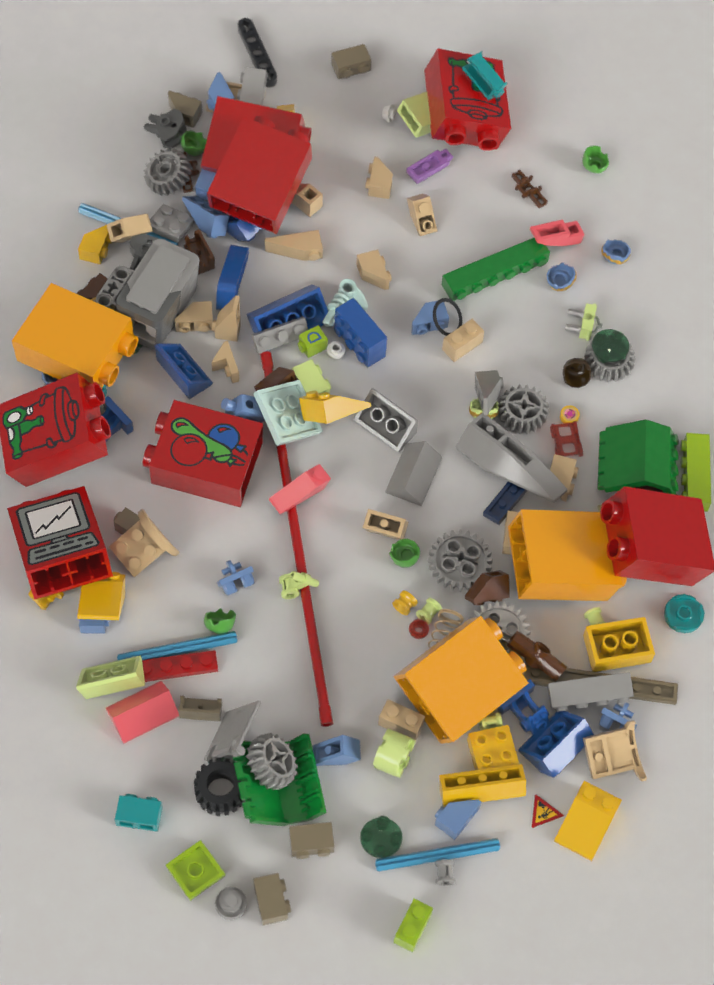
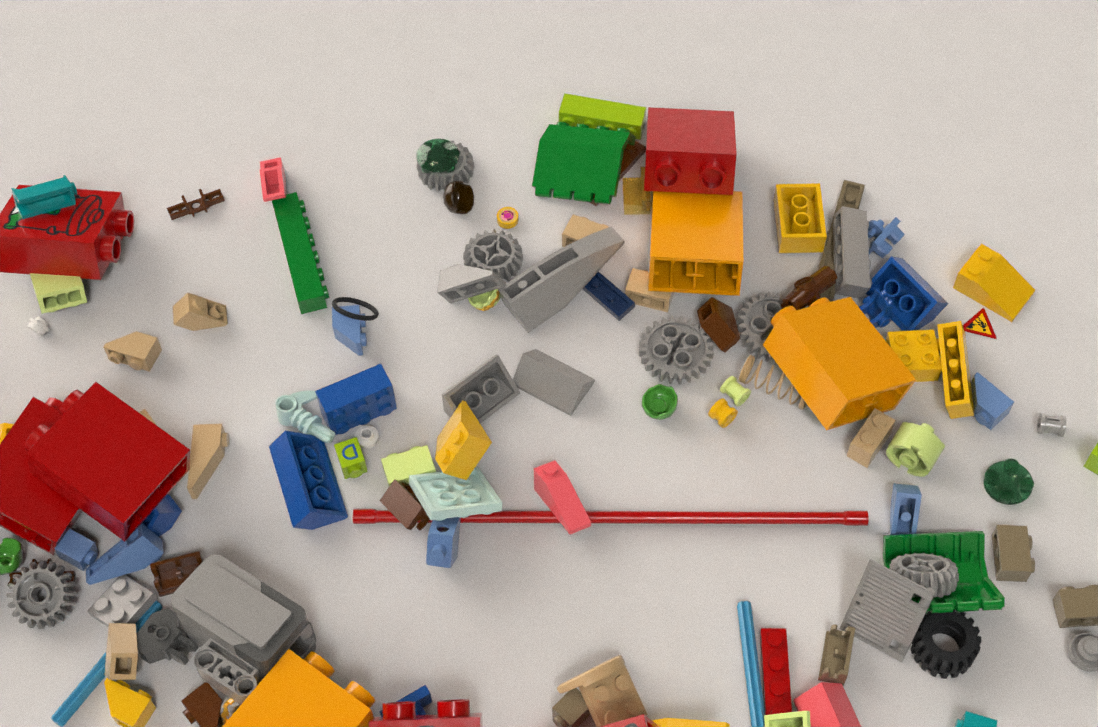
camera: 75 degrees left, 5 degrees down
(182, 369) = (353, 618): blue slope -> none
(195, 318) = (282, 579): tan slope -> none
(195, 870) = (1047, 687): lime plate -> none
(204, 452) = (489, 600): red brick -> none
(219, 622) = (725, 615): bright green hair -> none
(225, 360) = (352, 559): tan slope -> none
(228, 321) = (302, 544): tan slope -> none
(228, 582) = (663, 591): medium blue hips -> none
(231, 275) = (233, 535): blue beam -> none
(279, 335) = (333, 492): light grey plate -> none
(294, 582) = (685, 529): yellowish green piece -> none
(372, 269) = (264, 377): tan slope -> none
(385, 524) = (623, 414): tan brick -> none
(418, 623) = (758, 401): clear red plate -> none
(429, 165) = (131, 296): medium lavender hinge -> none
(437, 854) = (1029, 431): dark azure axle -> none
(463, 340) = (389, 299): tan brick -> none
(560, 440) = (538, 231): clear red piece -> none
(561, 277) = (329, 190): medium blue hair -> none
(588, 316) = (385, 175): yellowish green piece -> none
(594, 616) = (765, 236): yellowish green bush -> none
(595, 160) = (182, 132): bright green hair -> none
(614, 752) = (923, 244): tan piece -> none
(616, 251) = (309, 135): medium blue hair -> none
(684, 613) = (763, 161): teal tile -> none

